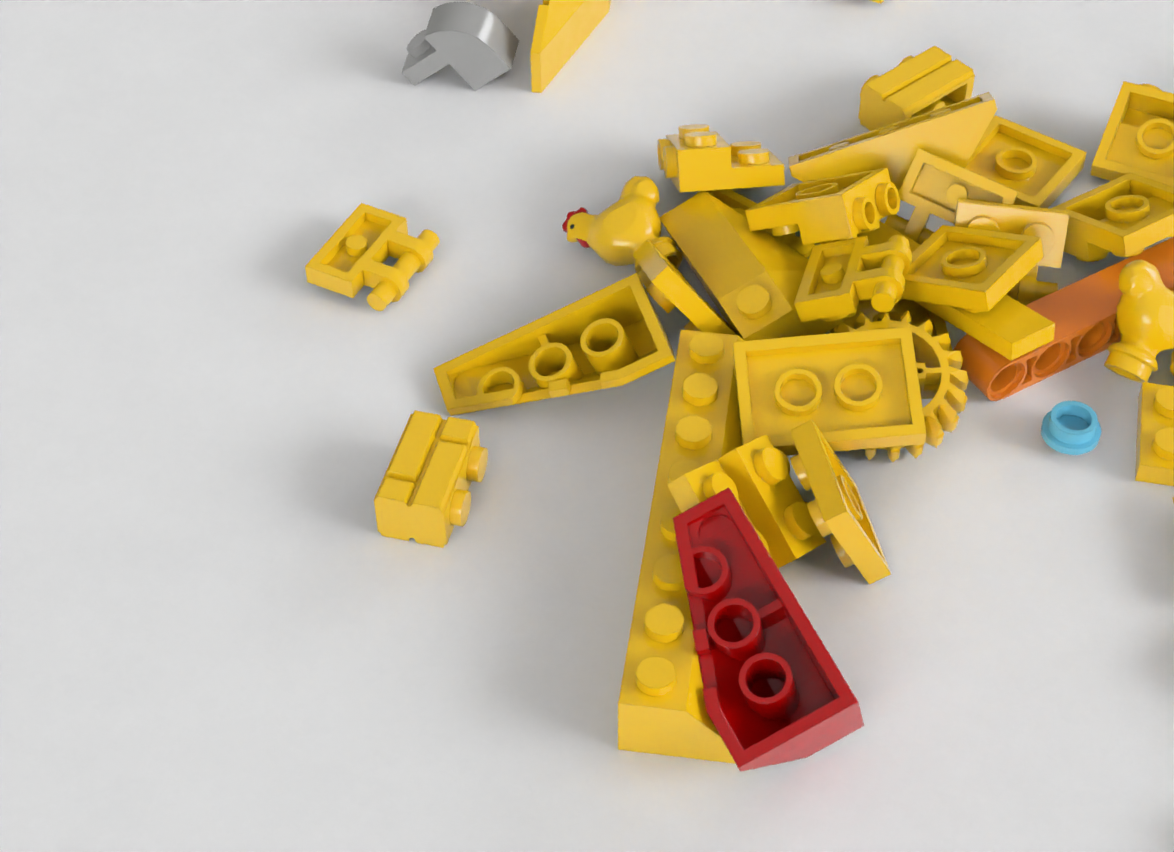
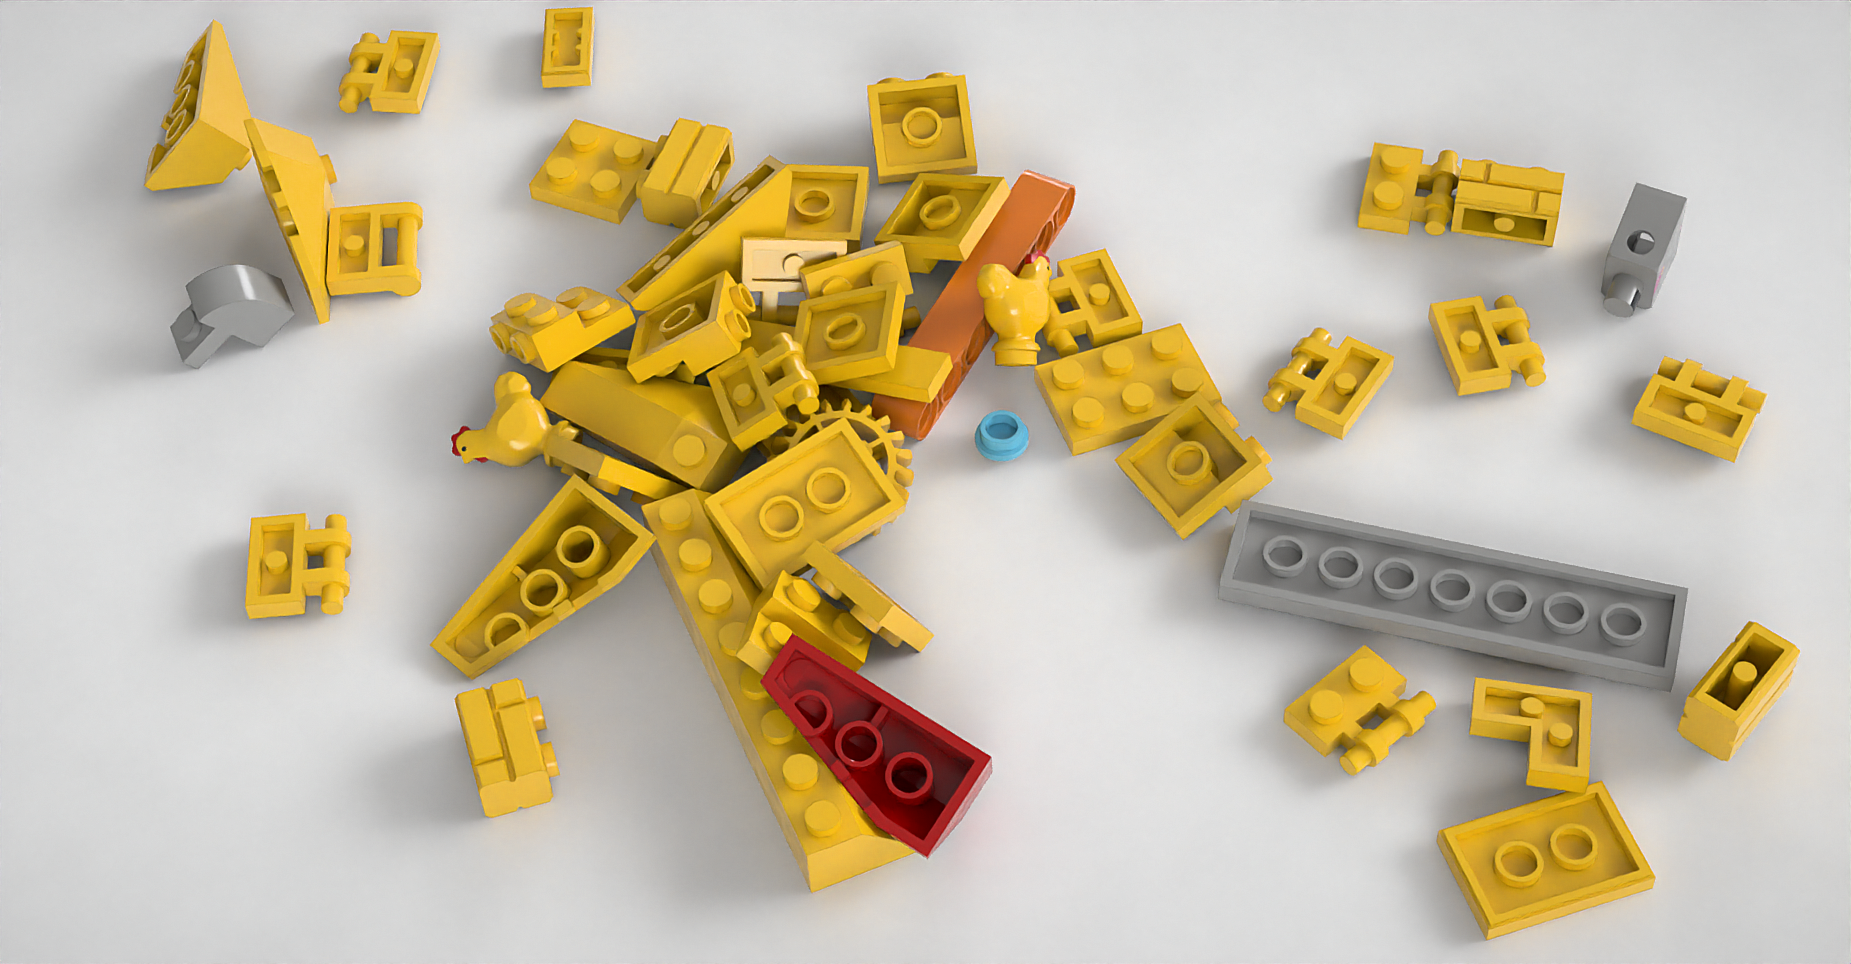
camera: 30 degrees left, 5 degrees up
(601, 41) = (357, 249): none -> yellow plate
(834, 66) = (593, 171): none -> yellow plate

